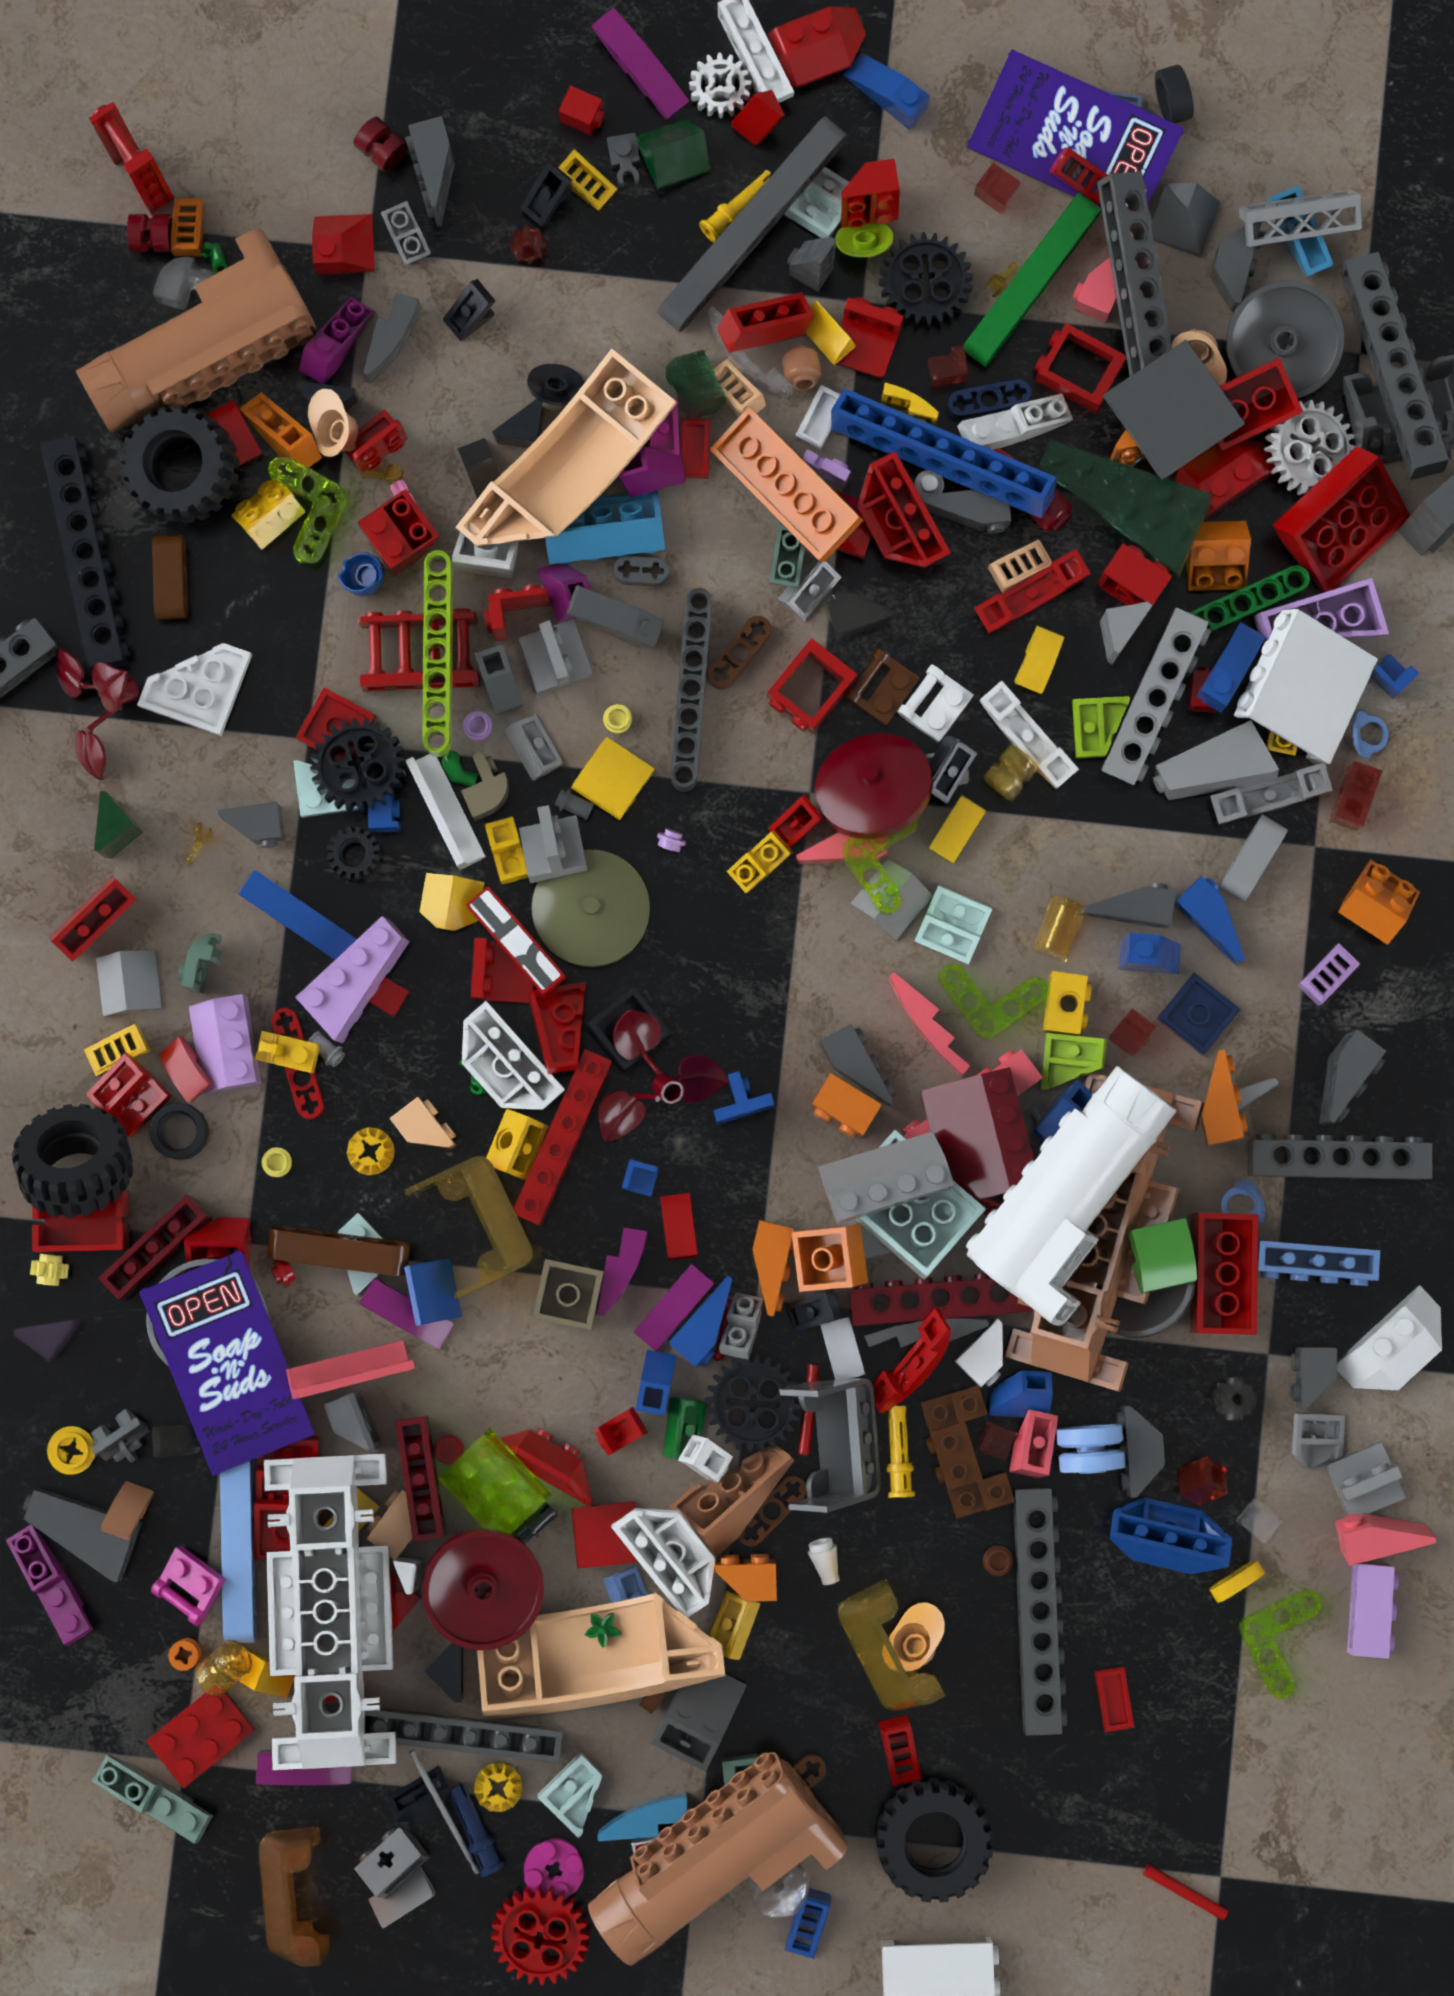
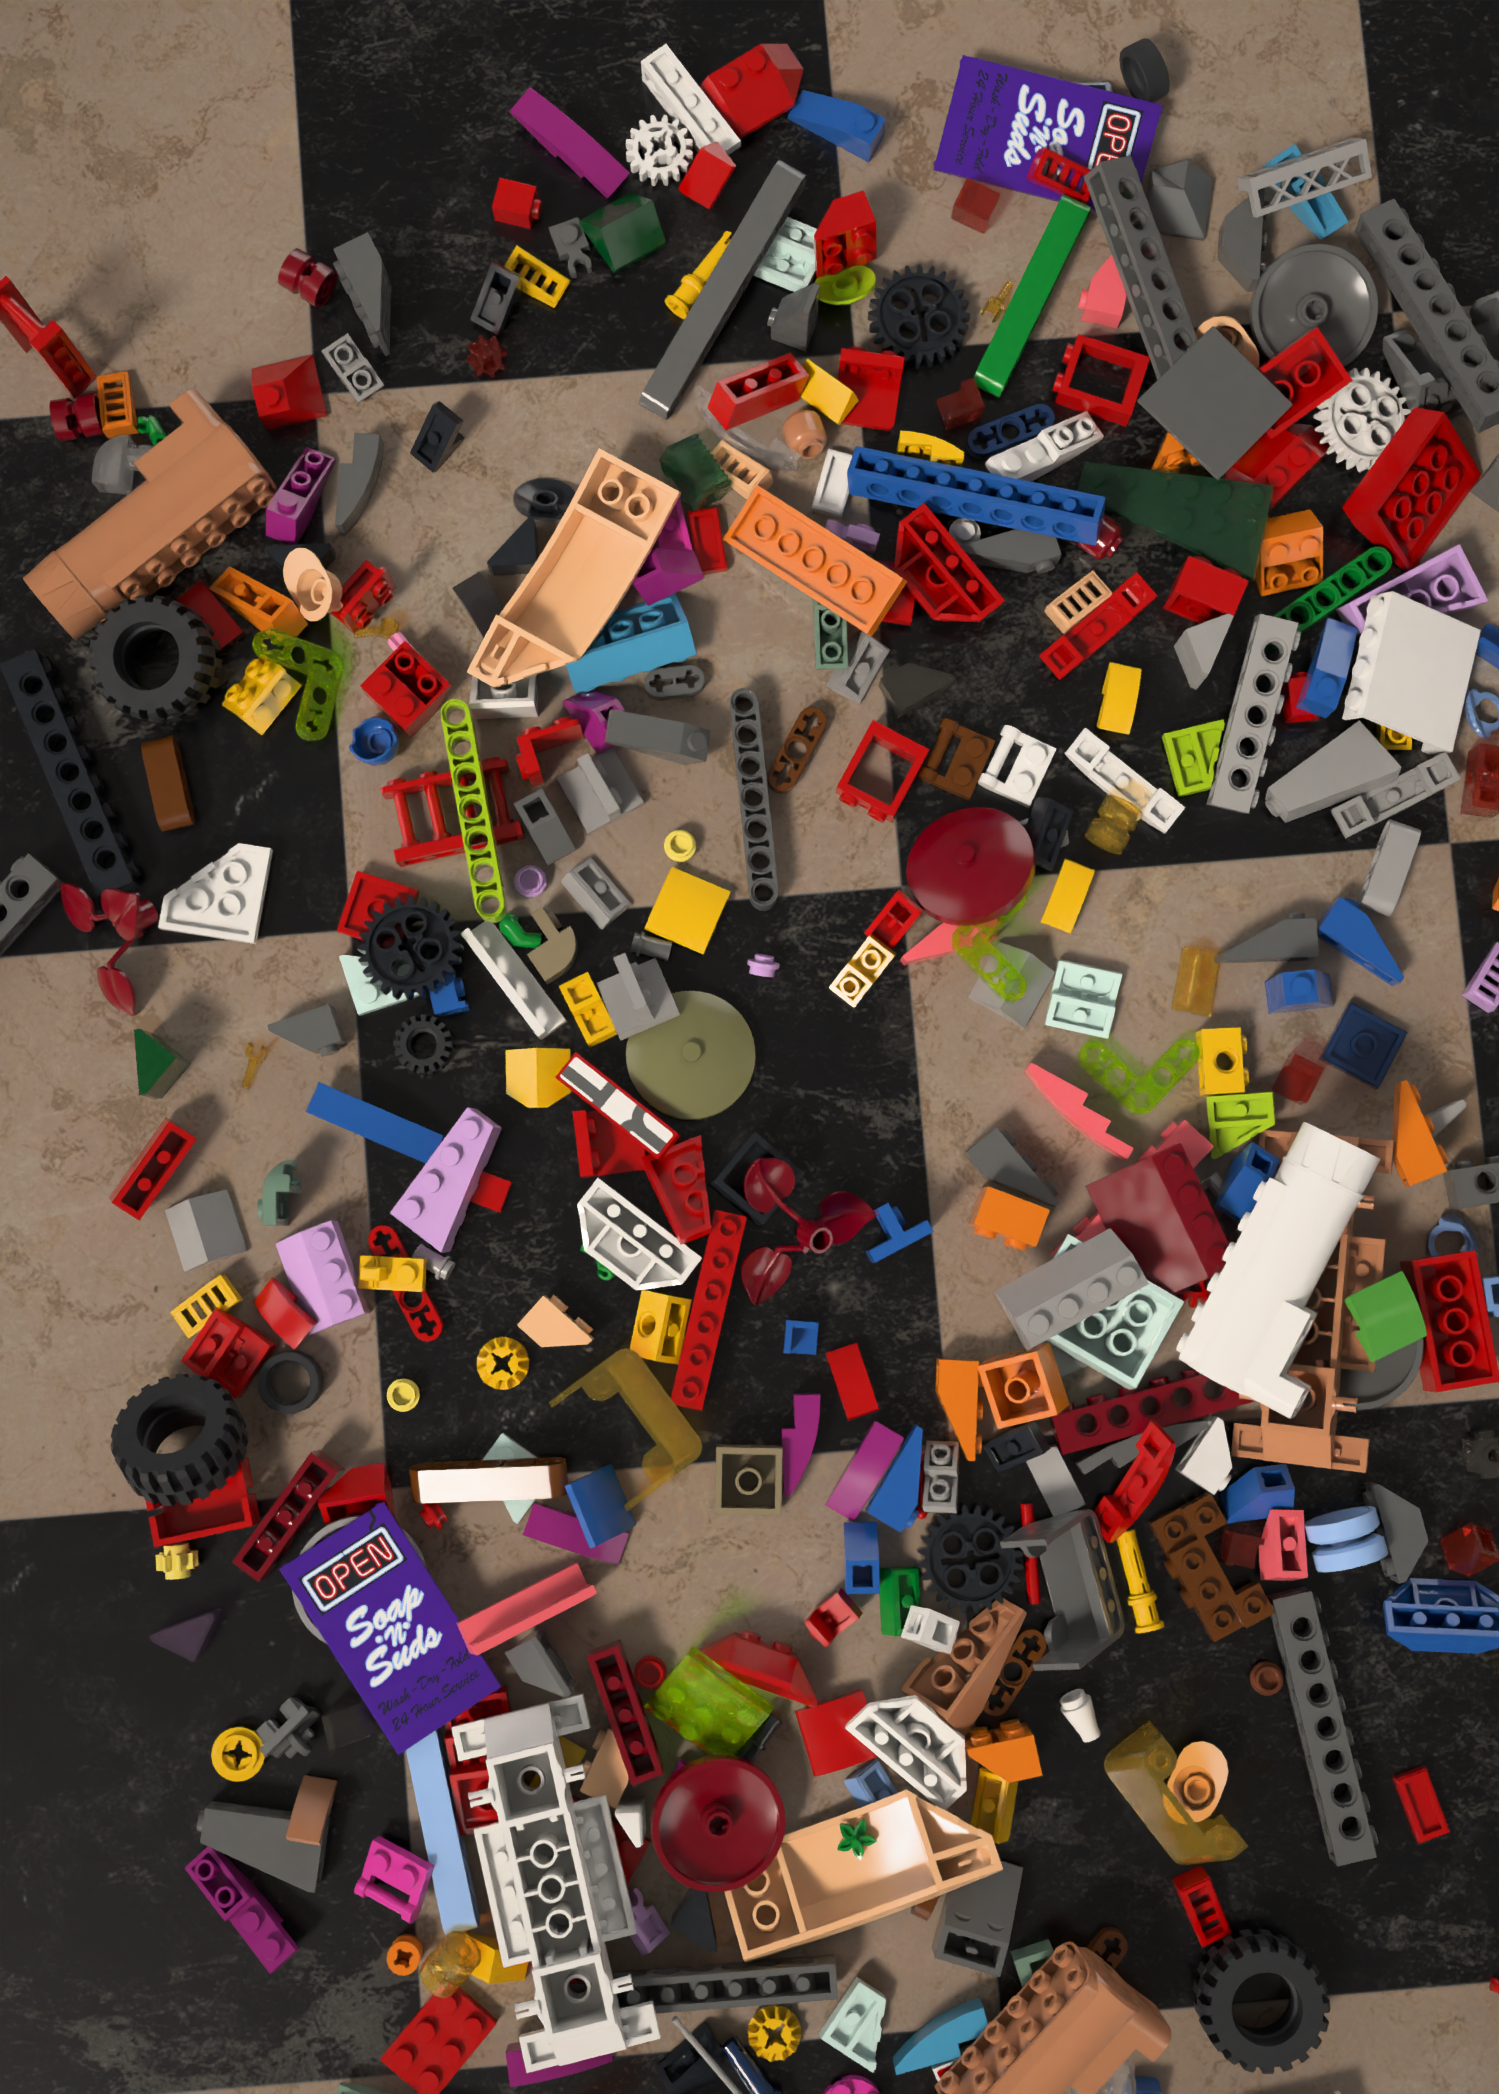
camera: 15 degrees left, 0 degrees up
(405, 1669) = (649, 1925): none -> lavender plate

